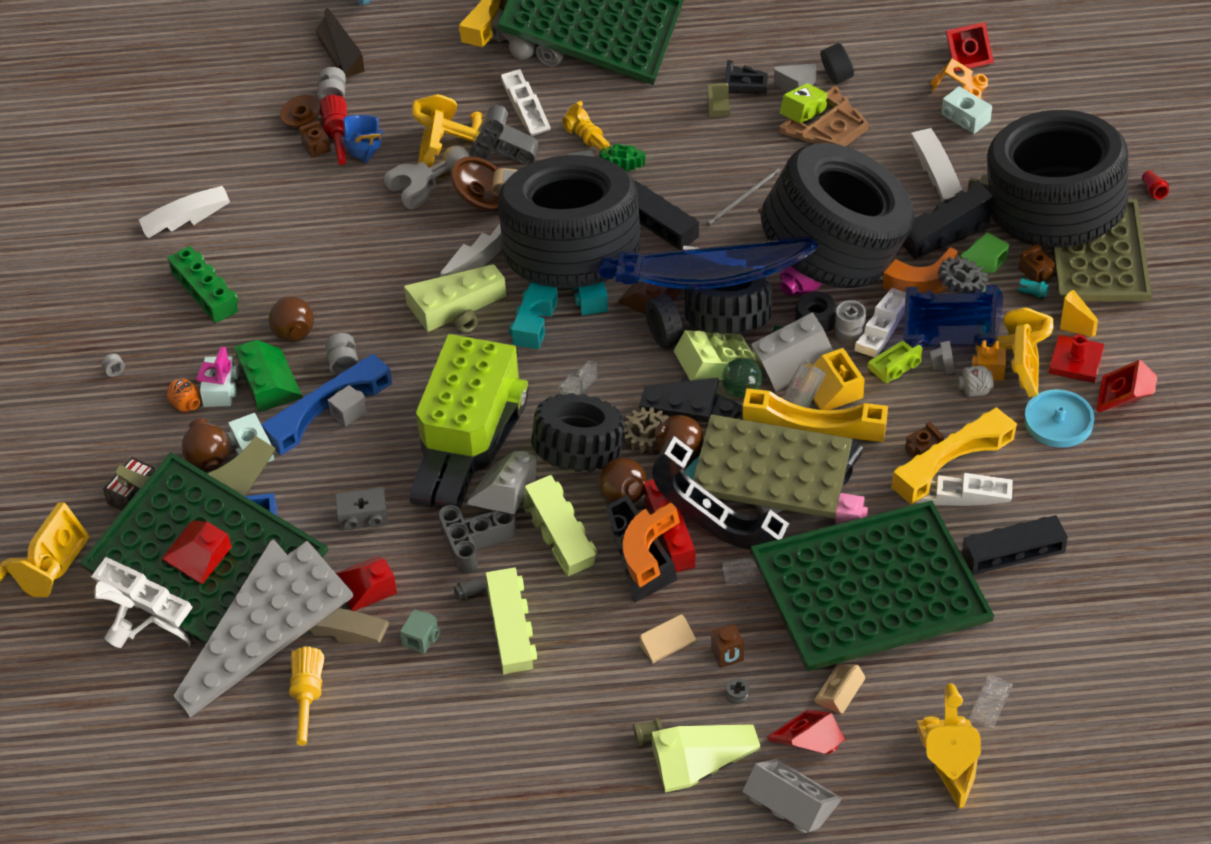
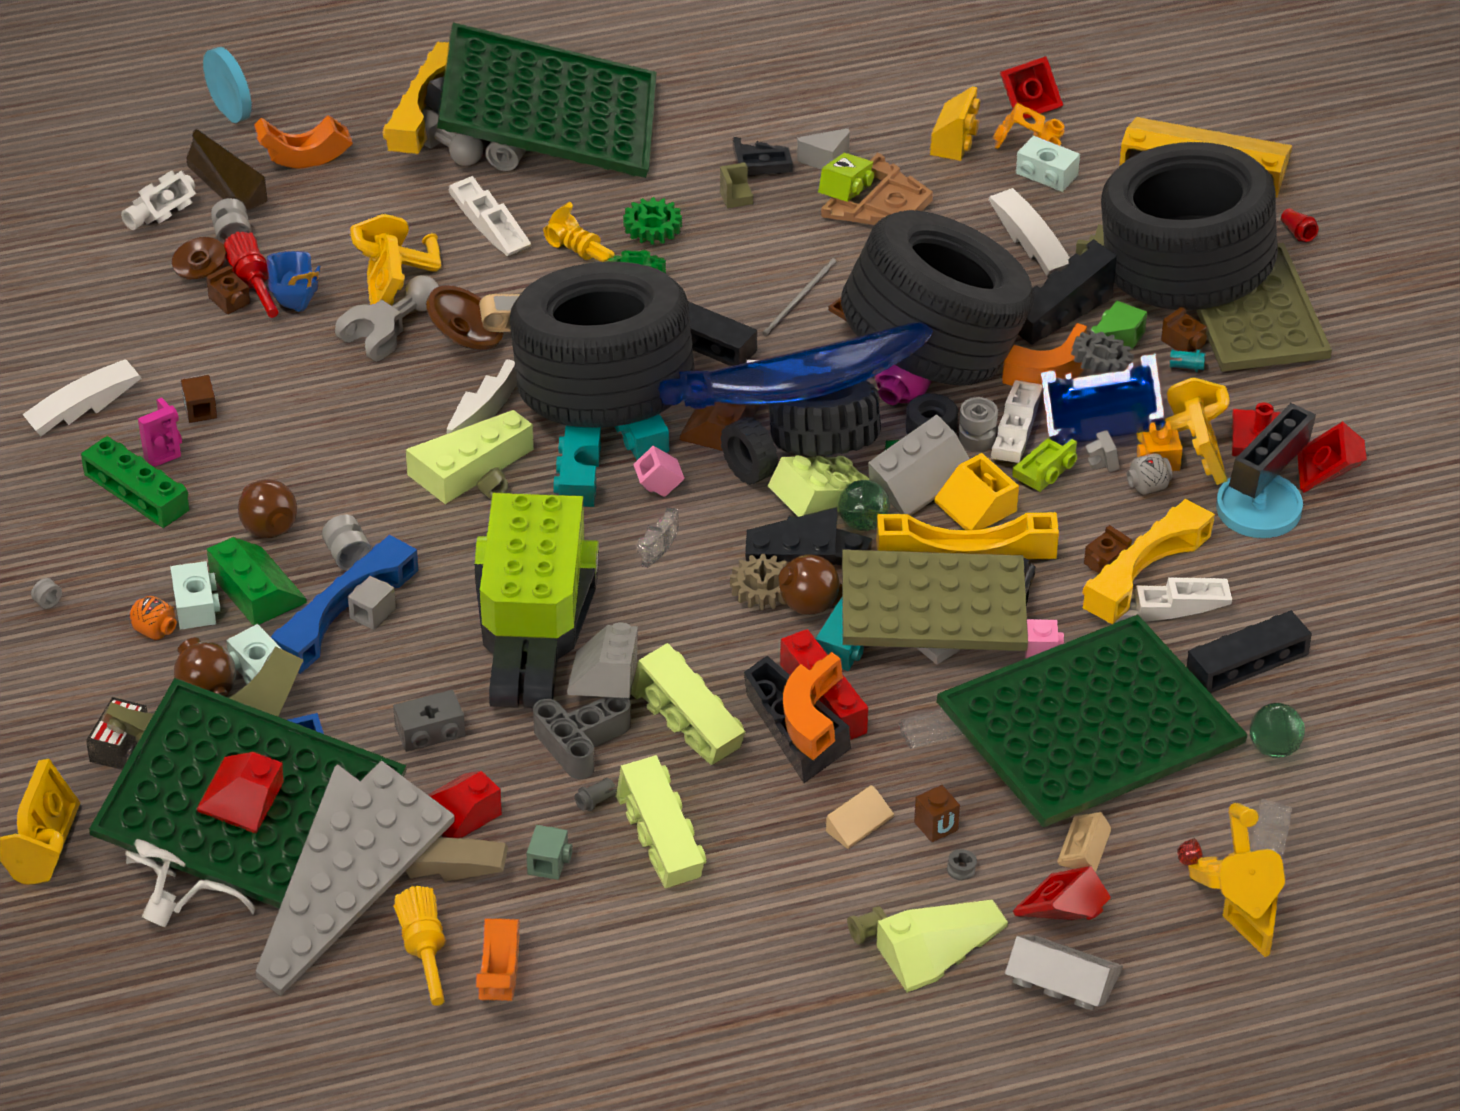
camera: 15 degrees left, 5 degrees down
(143, 592) = (200, 855): white slope -> none
(221, 365) = (200, 577): dark pink bracket -> none
(228, 251) = (160, 434): none -> dark pink bracket
(268, 223) = (199, 398): none -> reddish brown brick
(287, 61) = (159, 200): none -> white brick
(356, 717) = (499, 959): none -> orange arch
(402, 33) = (307, 149): none -> orange arch
(505, 140) = (470, 258): dark grey beam -> none
(577, 432) = (682, 591): black tyre -> none
(591, 328) = (658, 471): none -> bright pink brick
(622, 478) = (750, 640): reddish brown brick -> none
(646, 121) = (652, 220): none -> green gear
(705, 508) = (868, 660): black arch -> none
(804, 384) = (944, 501): clear slope -> none
(837, 63) = (873, 125): black tyre -> none
(901, 71) = (956, 126): none -> yellow slope
(921, 709) = (1189, 852): none -> clear red hinge
(1017, 616) = (1277, 730): none -> clear green piece
(1076, 376) = (1272, 450): none -> black brick
(1077, 316) = (1251, 385): yellow slope -> none
(1124, 117) = (1148, 134): none -> yellow slope

